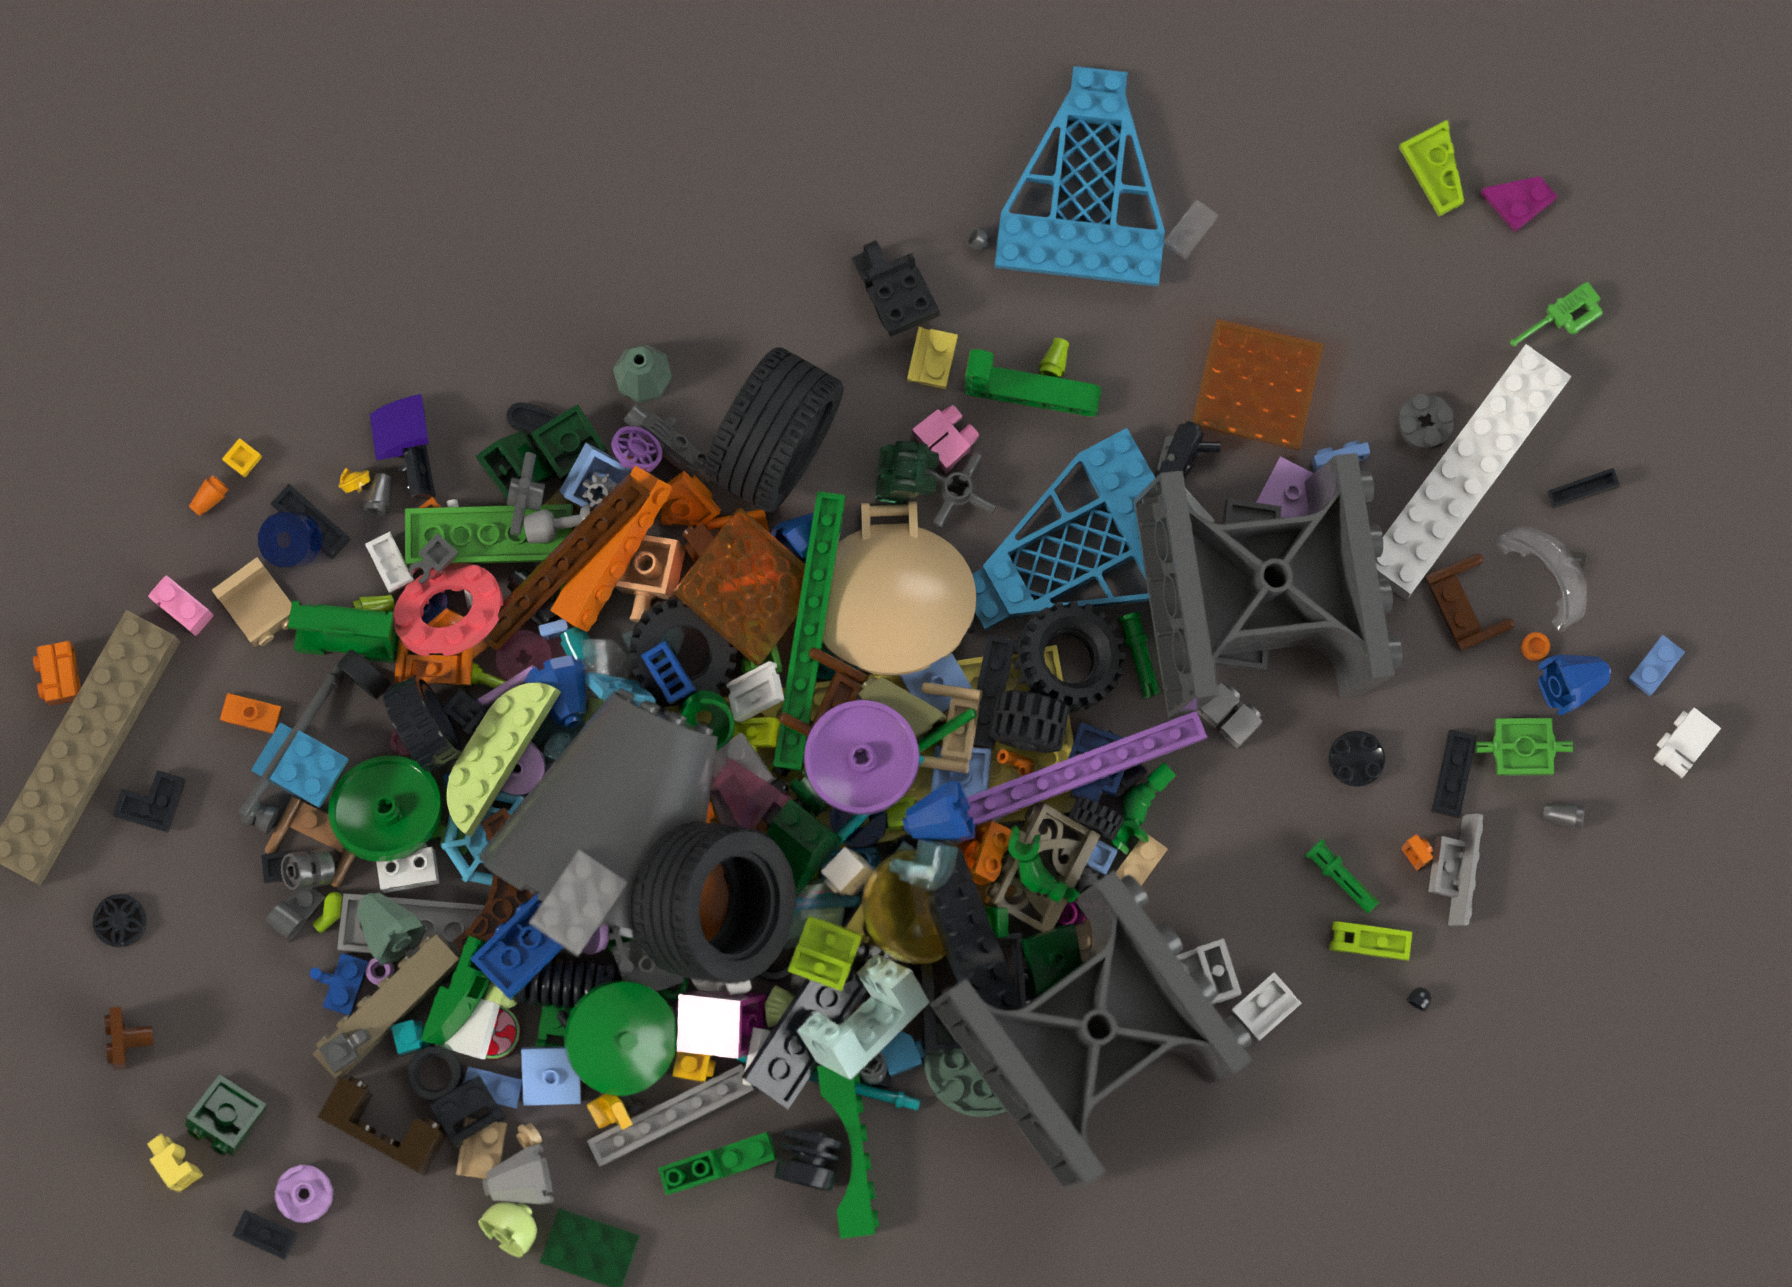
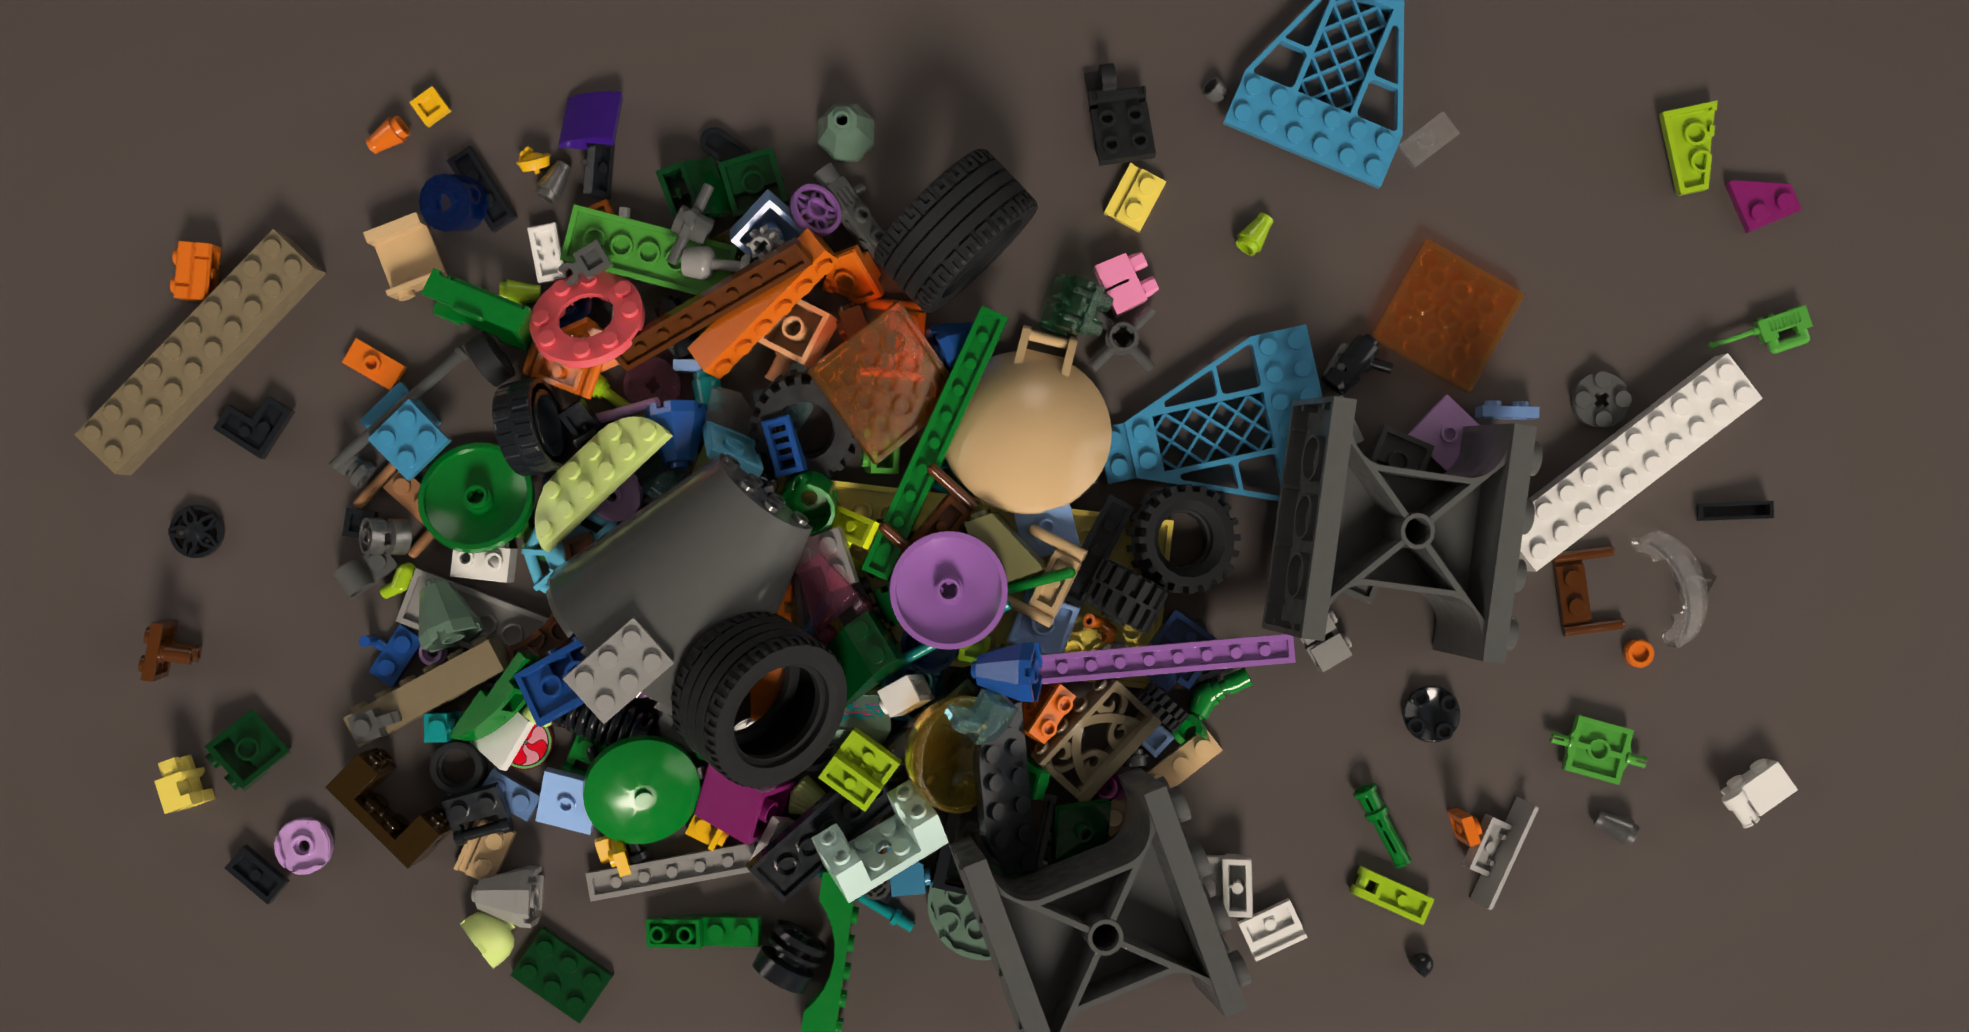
camera: 15 degrees right, 10 degrees up
(180, 605) = (331, 238): bright pink brick -> none
(528, 1135) = (531, 852): tan plate -> none
(755, 692) = (864, 488): white plate -> none
(820, 907) = (874, 715): dark azure piece -> none
(1027, 388) = (1220, 256): green beam -> none
(1032, 871) = (1086, 745): green piece -> none
(1136, 641) = (1252, 539): green pin -> none
(1454, 773) = (1521, 754): black tile -> none
(1572, 680) = (1665, 701): blue cone -> none
(1656, 665) = (1750, 705): medium blue plate -> none

